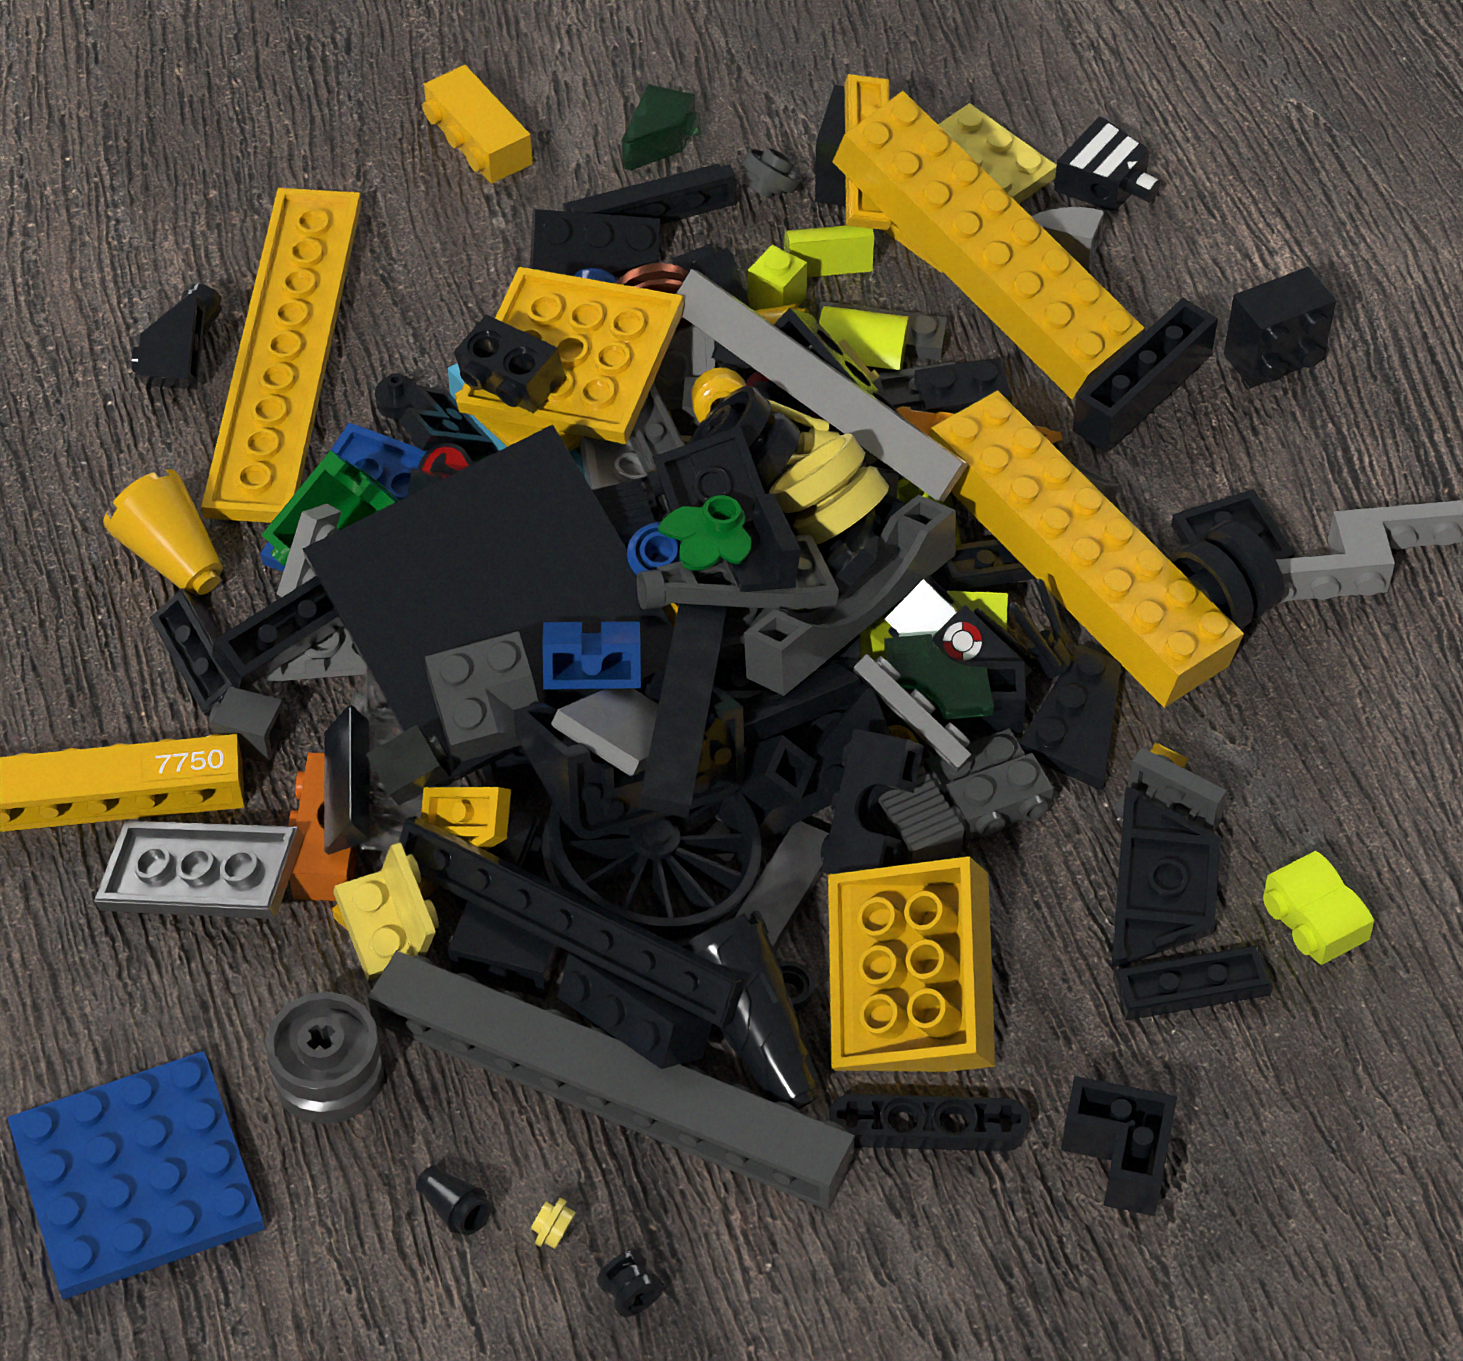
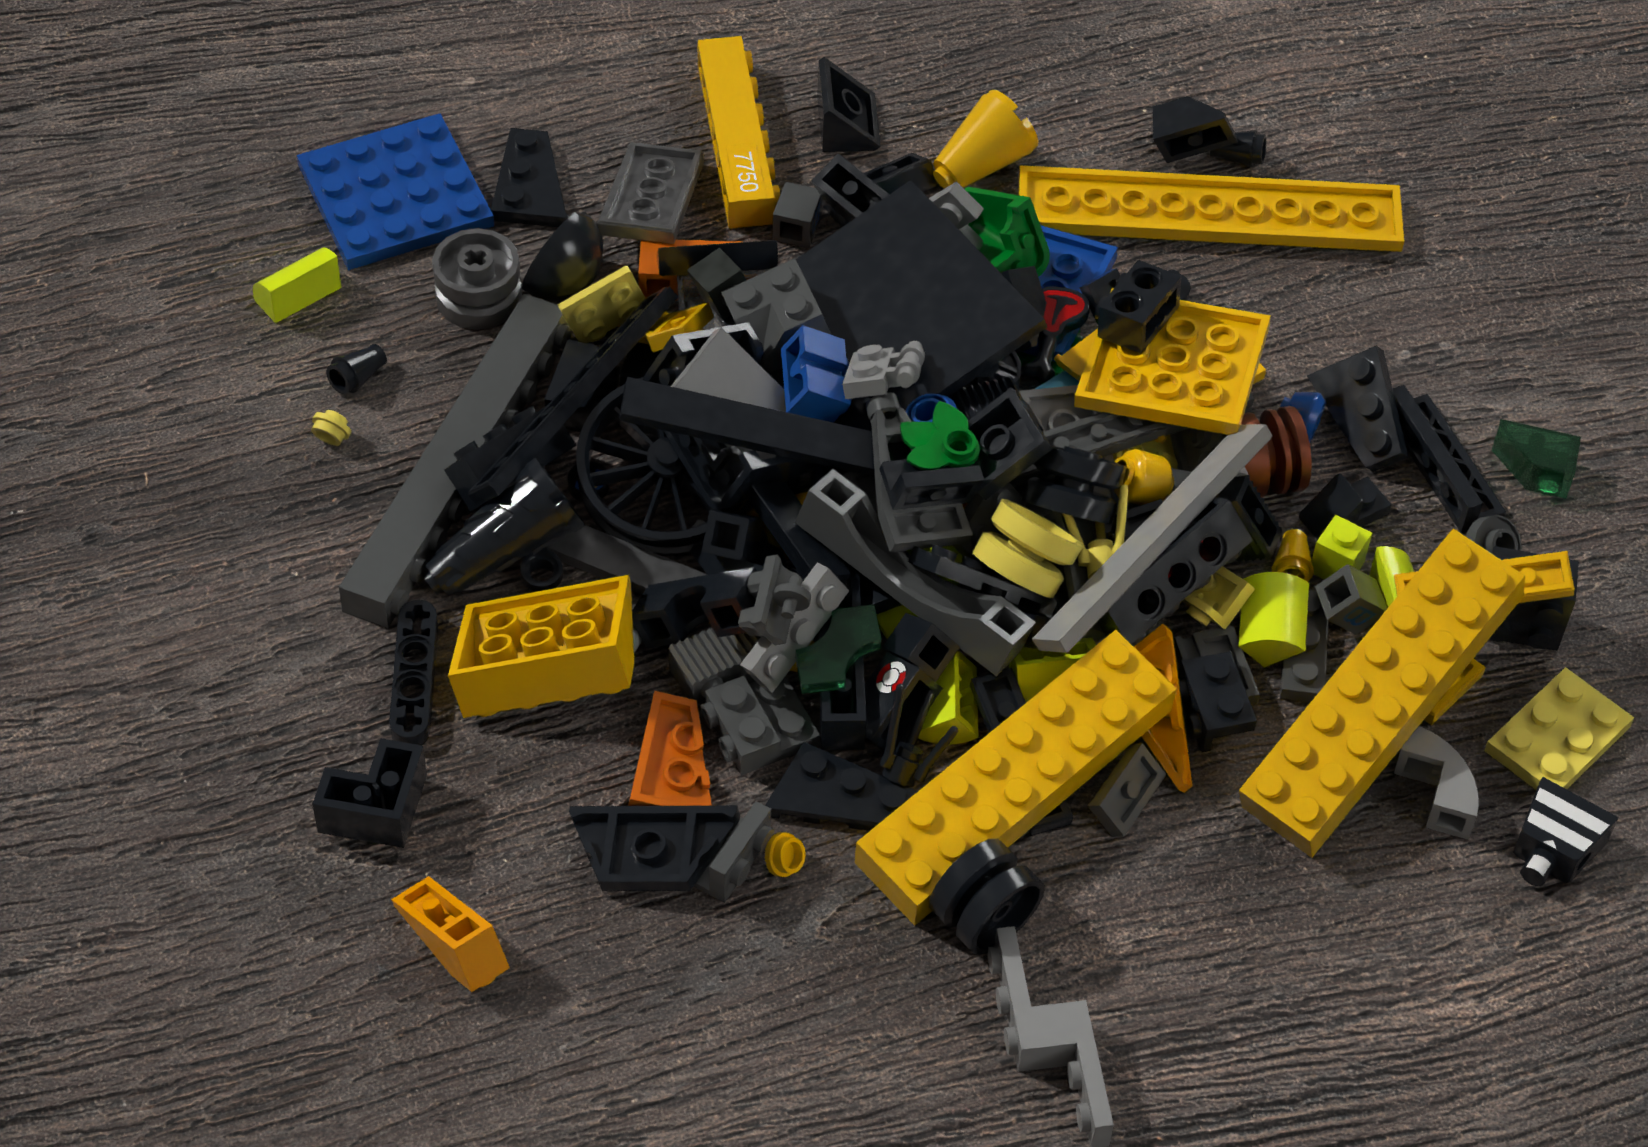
camera: 85 degrees right, 0 degrees up
(80, 679) = (845, 111): none -> black slope
(139, 1017) = (528, 182): none -> black wing
(298, 1275) = (298, 284): none -> neon yellow brick
(312, 944) = (566, 260): none -> black cylinder
(477, 124) = (1513, 321): yellow brick -> none
(606, 594) = (878, 368): none -> light grey plate
(630, 1283) = (274, 475): black wheel -> none
(842, 277) = (1351, 599): none -> brick
(883, 707) = (777, 598): none -> dark grey hips
(1055, 866) = (671, 756): none -> orange wing
(1144, 374) = (1258, 849): black brick -> none
(1192, 982) = (550, 873): black tile -> none
(1242, 507) = (1080, 930): black plate -> none
(1279, 327) = (1333, 967): black brick -> none
(1285, 1068) = (453, 933): none -> light orange slope
(1318, 908) = (621, 968): neon yellow brick -> none

